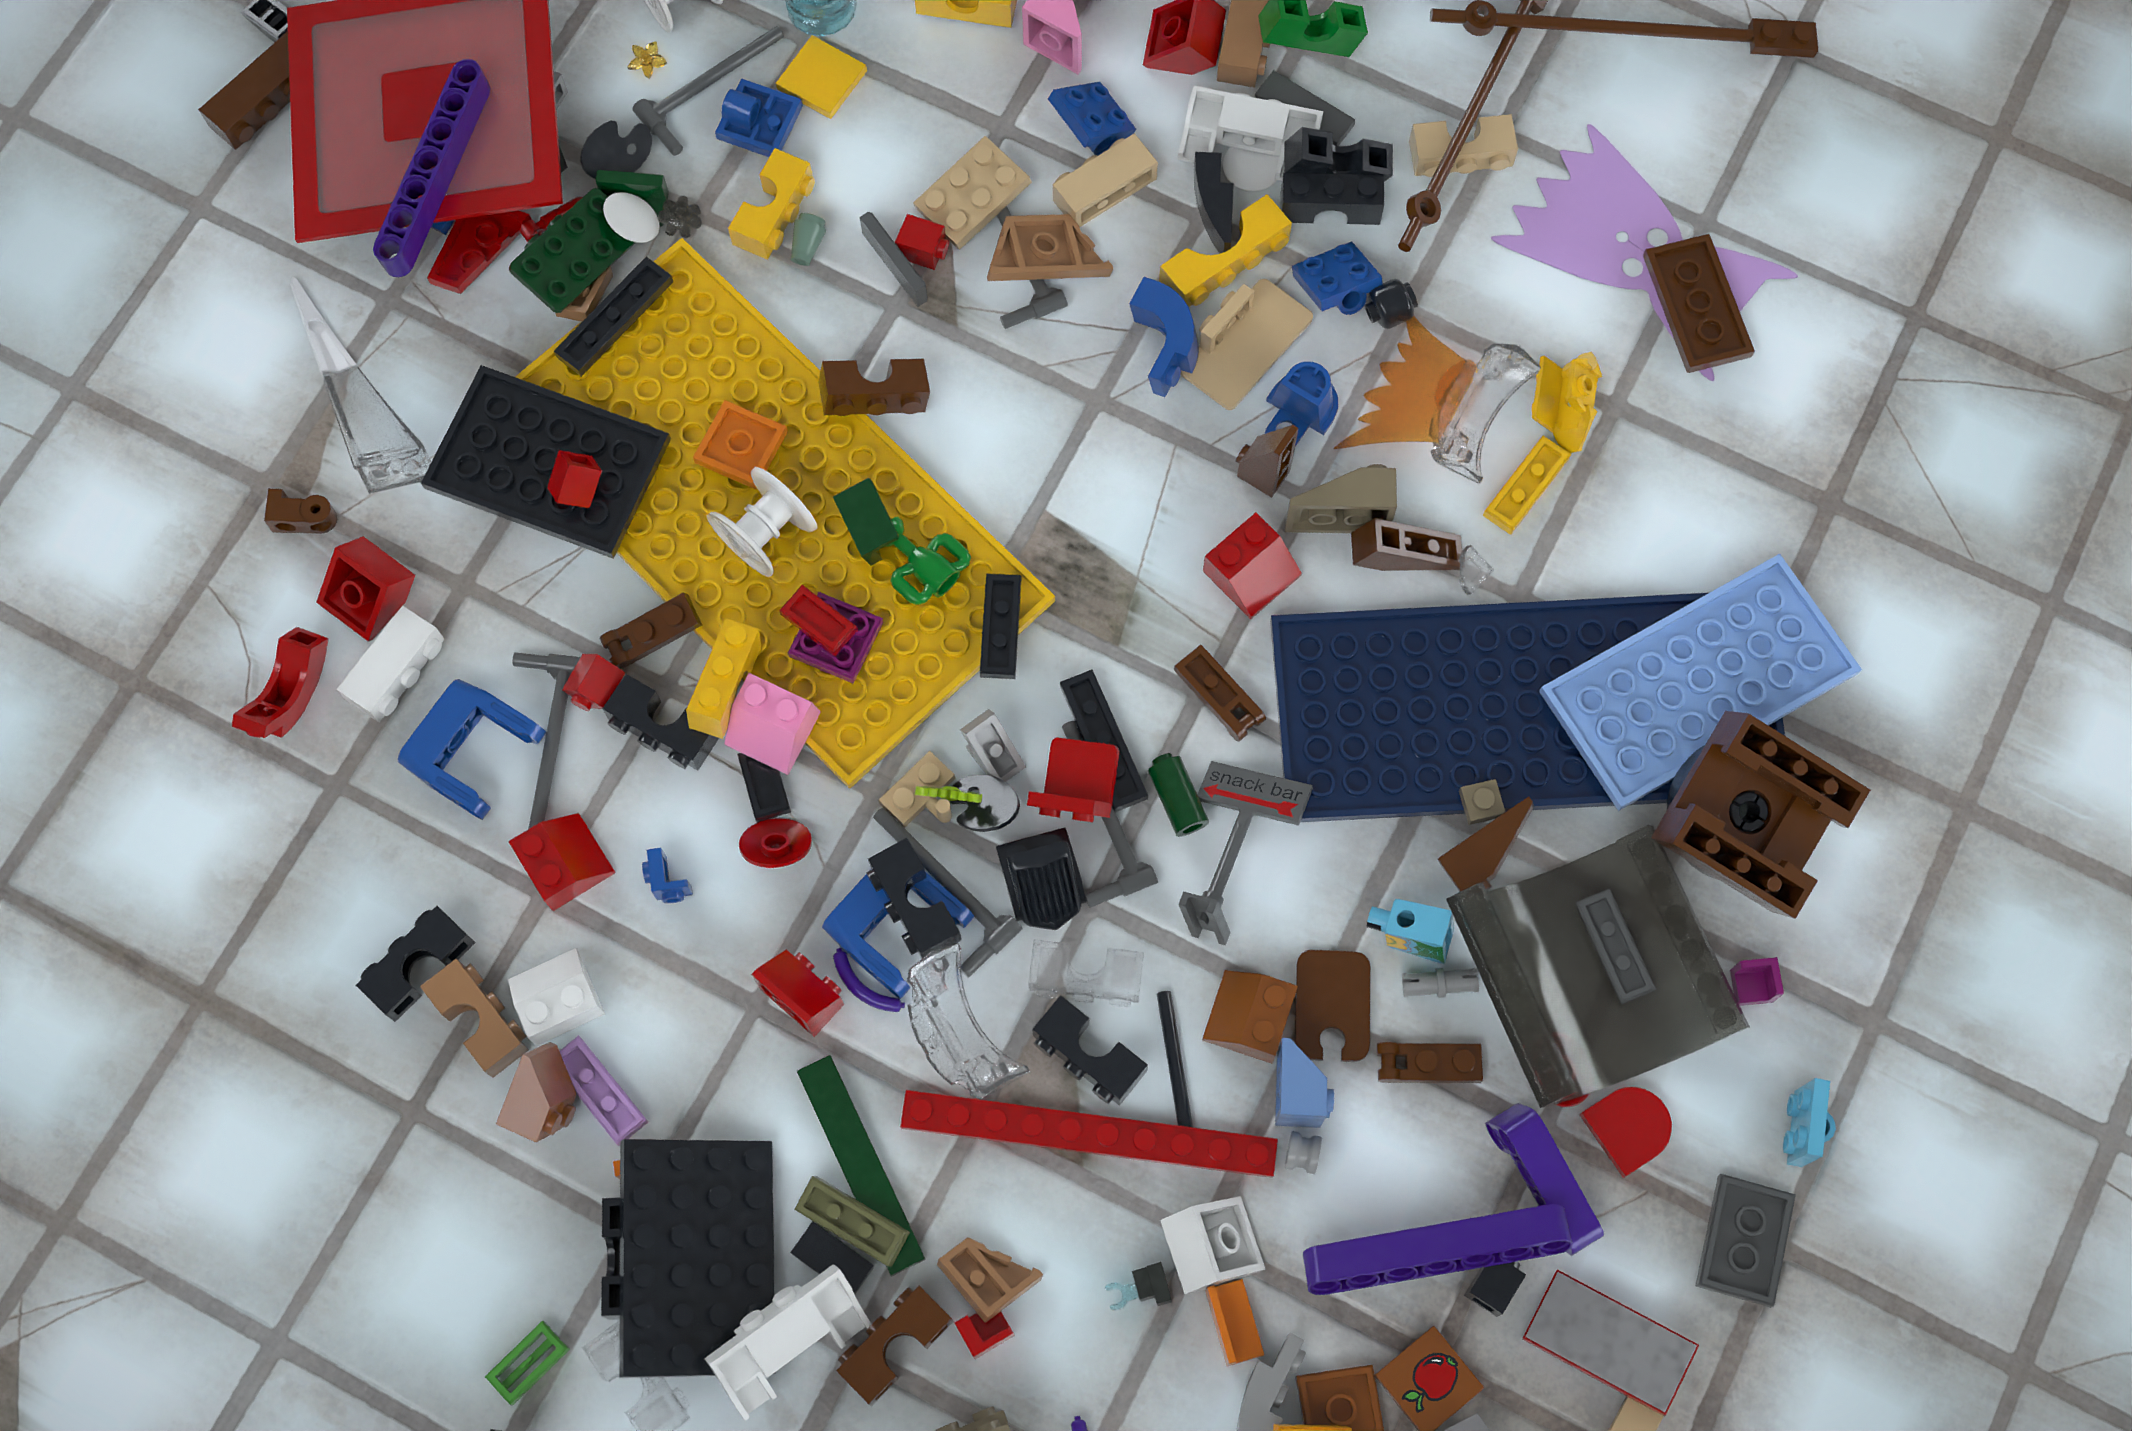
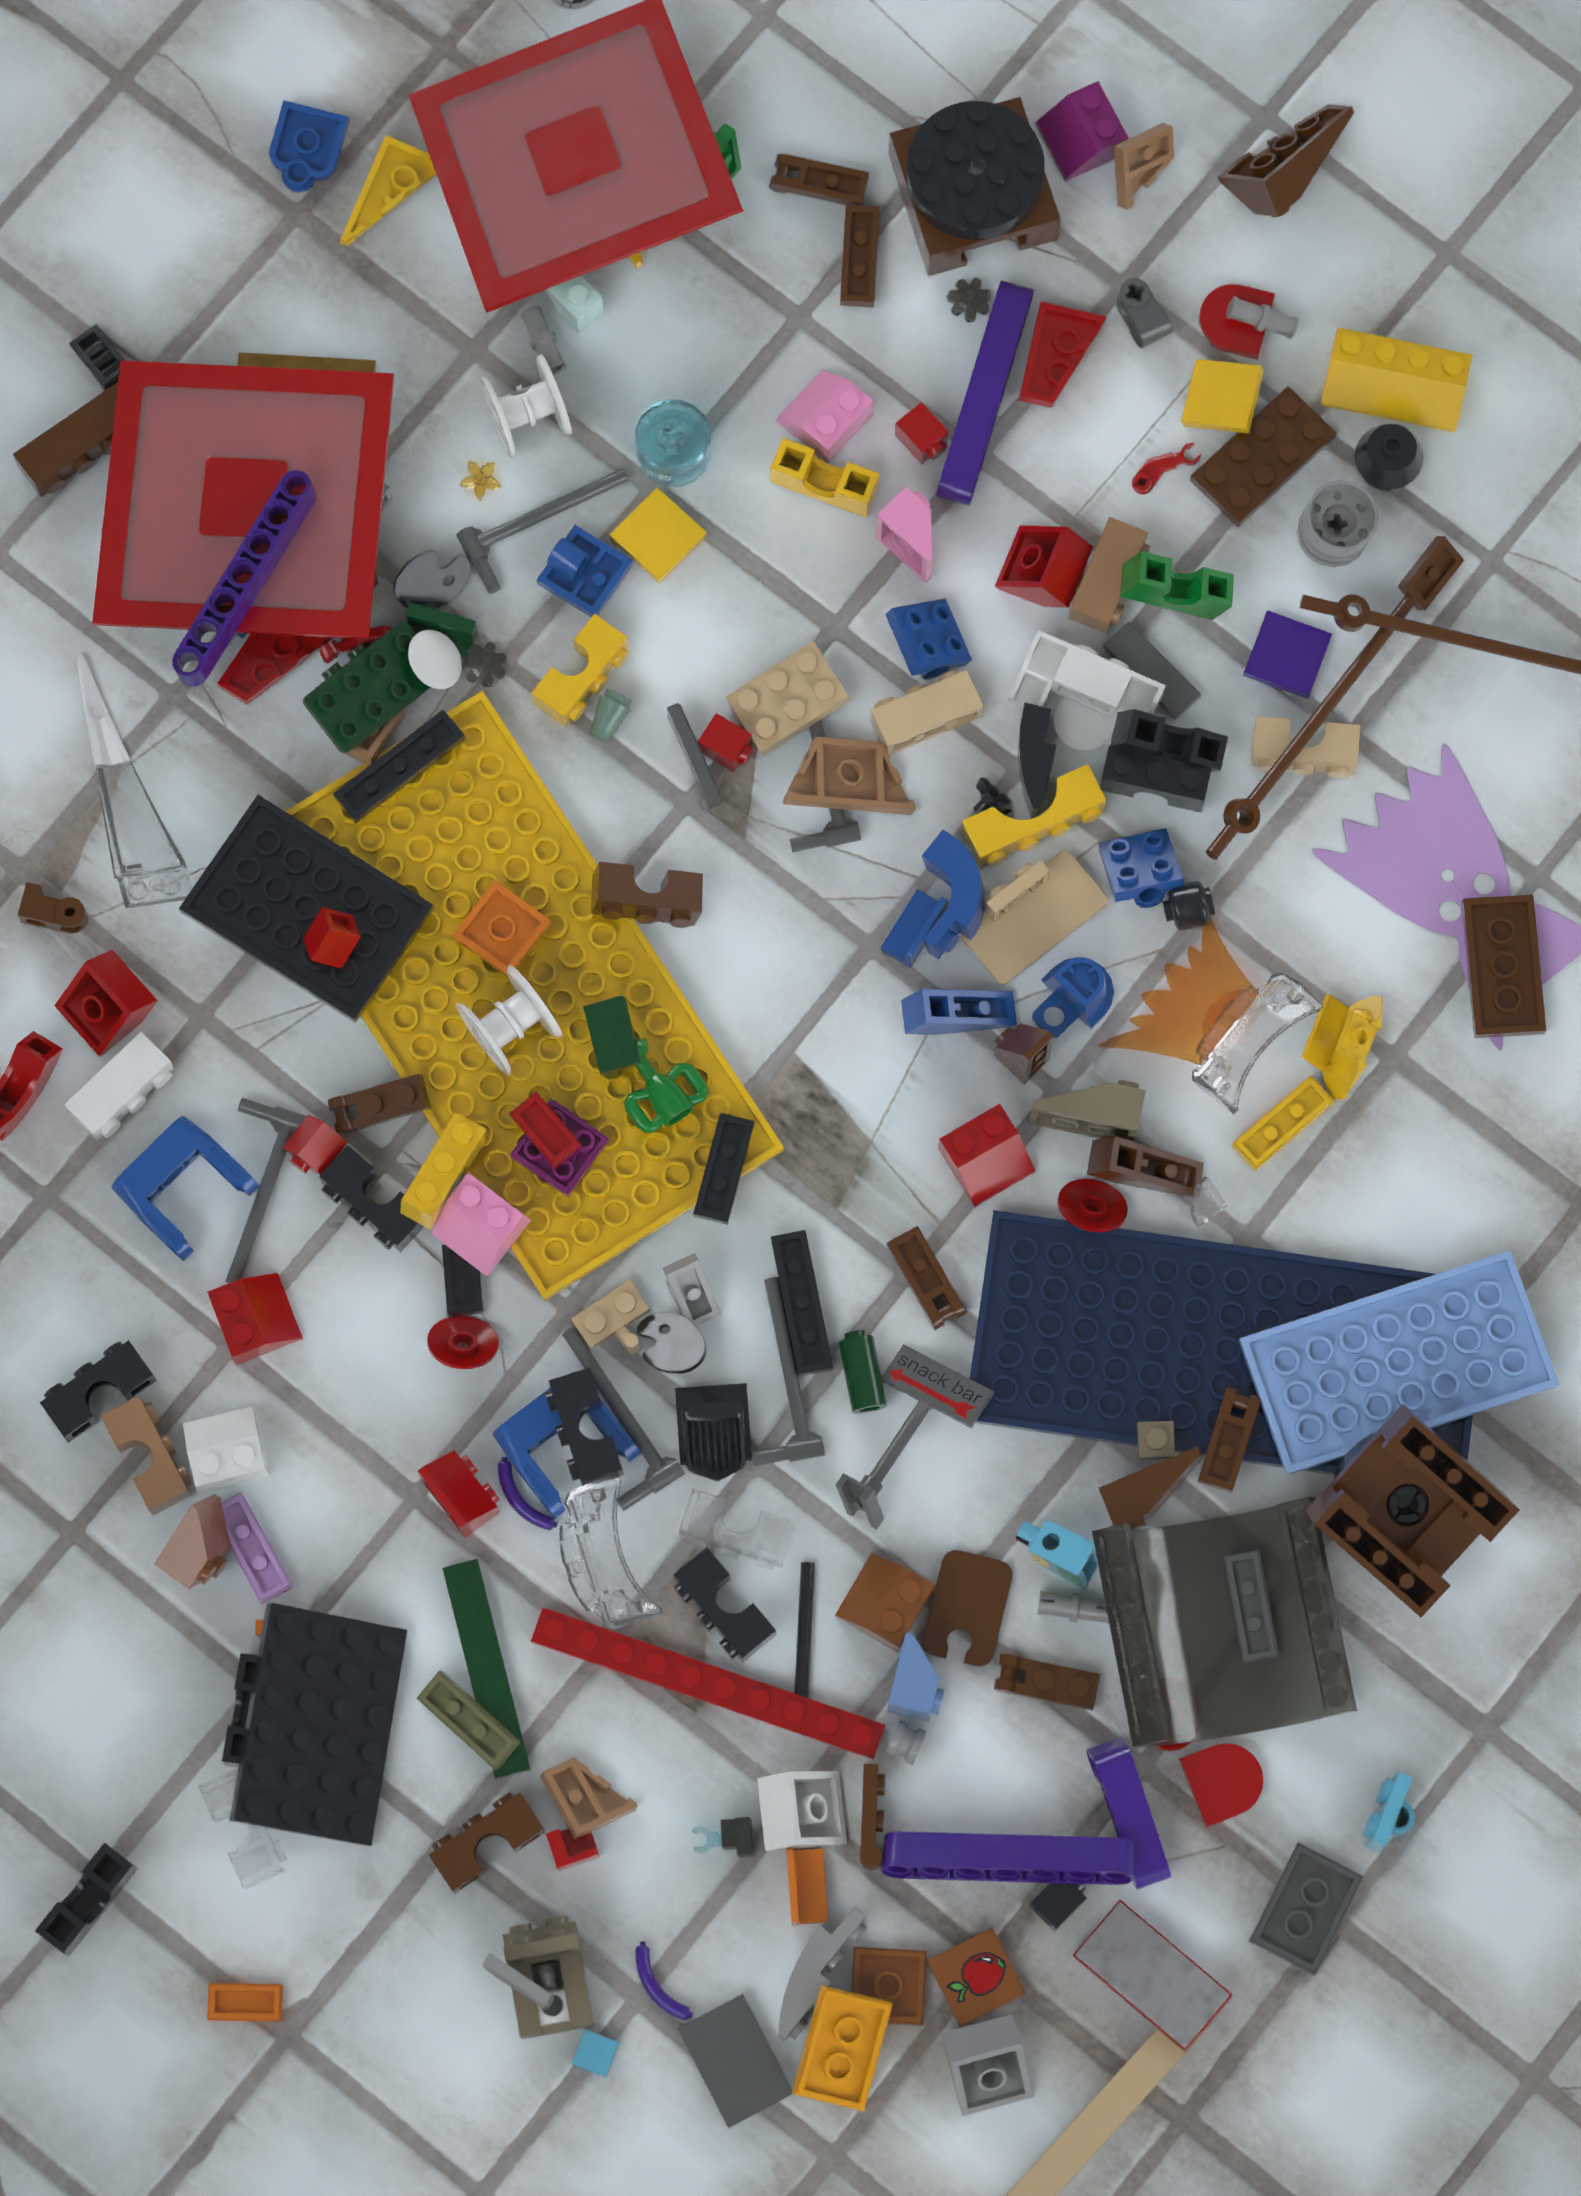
camera: 10 degrees right, 5 degrees up
(538, 1373) = (151, 1801): bright green tile -> none
(656, 873) = (343, 1349): blue bracket -> none
(782, 1332) = (386, 1809): white bracket -> none
(821, 1250) = (443, 1752): black tile -> none
(949, 793) = (640, 1327): lime animal -> none
(1078, 780) = (767, 1340): red bracket -> none
(1132, 376) = (915, 922): none -> blue panel
(1180, 243) = (991, 798): none -> black plant
(1192, 439) = (957, 1011): none -> blue slope
(1285, 1238) = (872, 1819): none -> reddish brown plate
(1365, 592) = (1092, 1205): none -> red dish
(1426, 73) = (1287, 654): none -> dark purple tile
(1554, 788) = (1228, 1441): none -> reddish brown plate
(1757, 981) = (1378, 1668): magenta panel -> none

